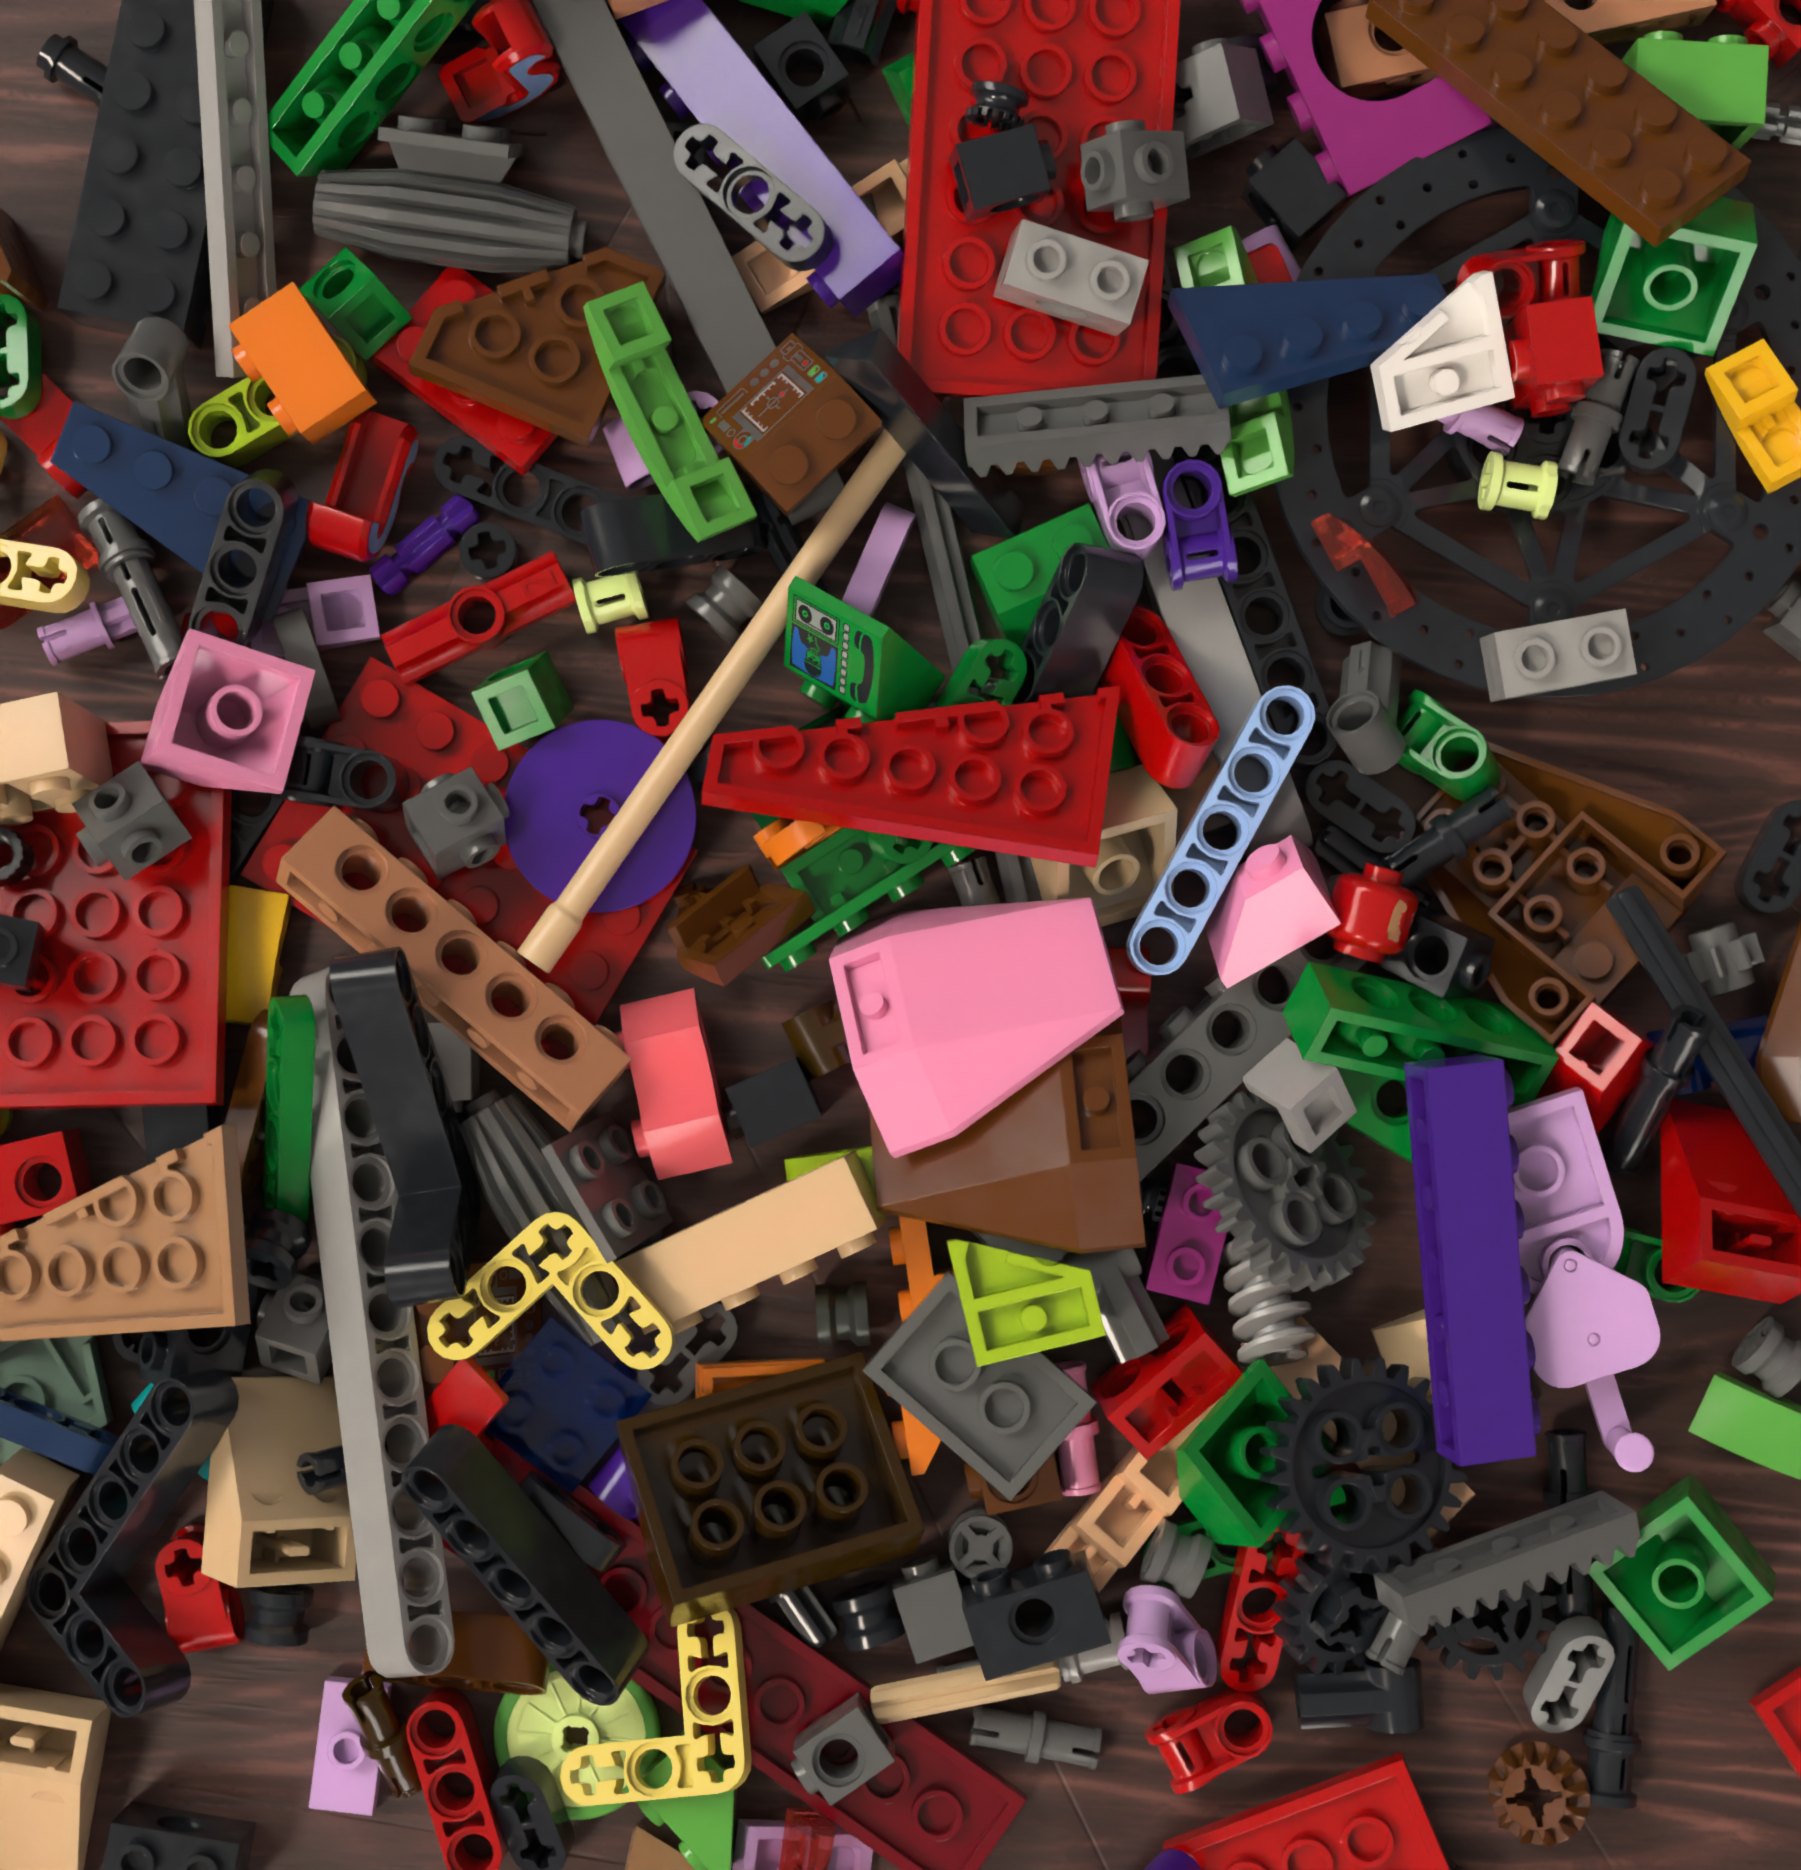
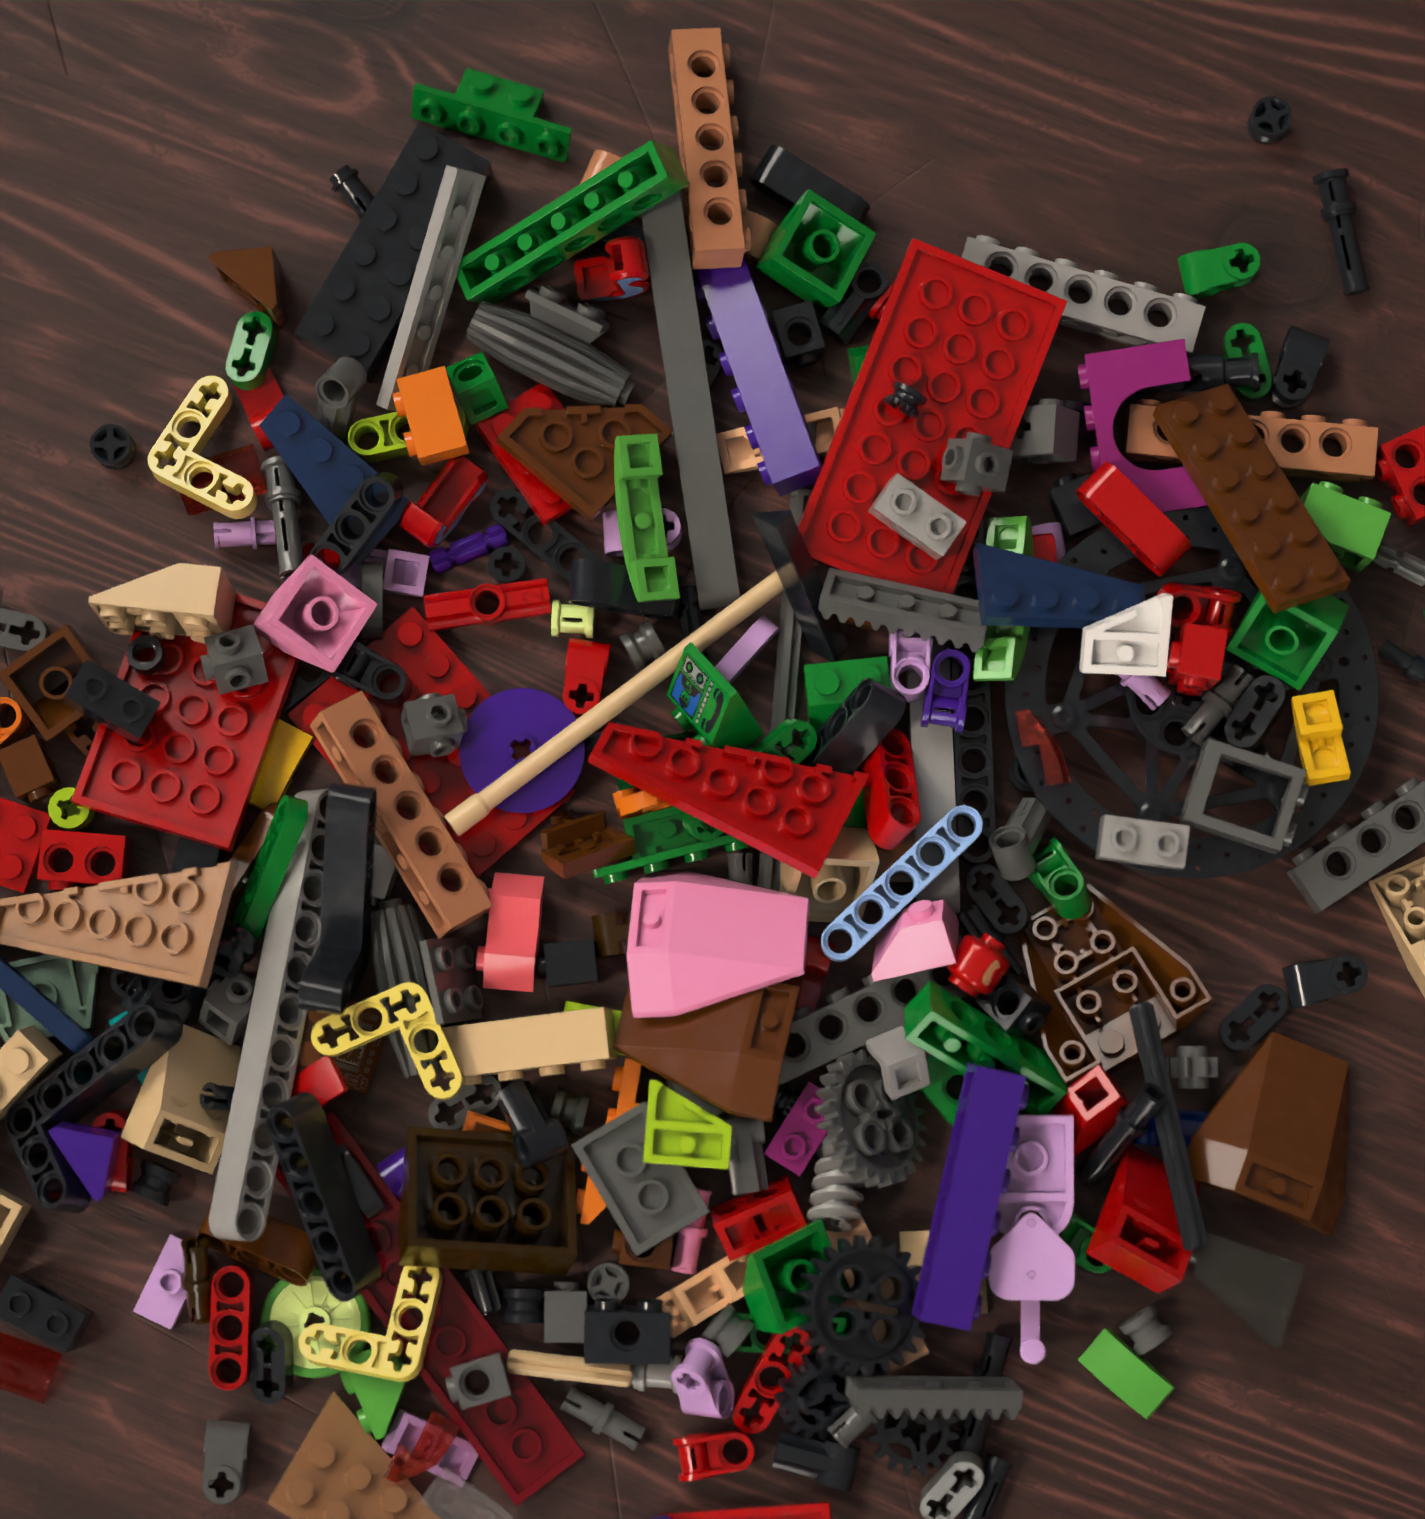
camera: 15 degrees right, 5 degrees down
(163, 1613) = (90, 1153): none -> dark purple slope
(522, 700) = (498, 664): brick -> none
(564, 1404) = (378, 1108): clear blue hinge -> none
(708, 183) = (744, 388): beam -> none
(791, 423) = (719, 548): reddish brown slope -> none
(804, 1370) = (534, 1133): none -> black piece
(1002, 171) = (896, 439): black brick -> none
(1390, 178) = (1133, 518): none -> red beam
(1450, 837) = (1044, 935): black pin -> none
(1540, 479) = (1139, 731): yellowish green bush -> none
(1617, 539) = (1200, 787): none -> dark grey window
(1688, 1575) = (1044, 1446): green slope -> none

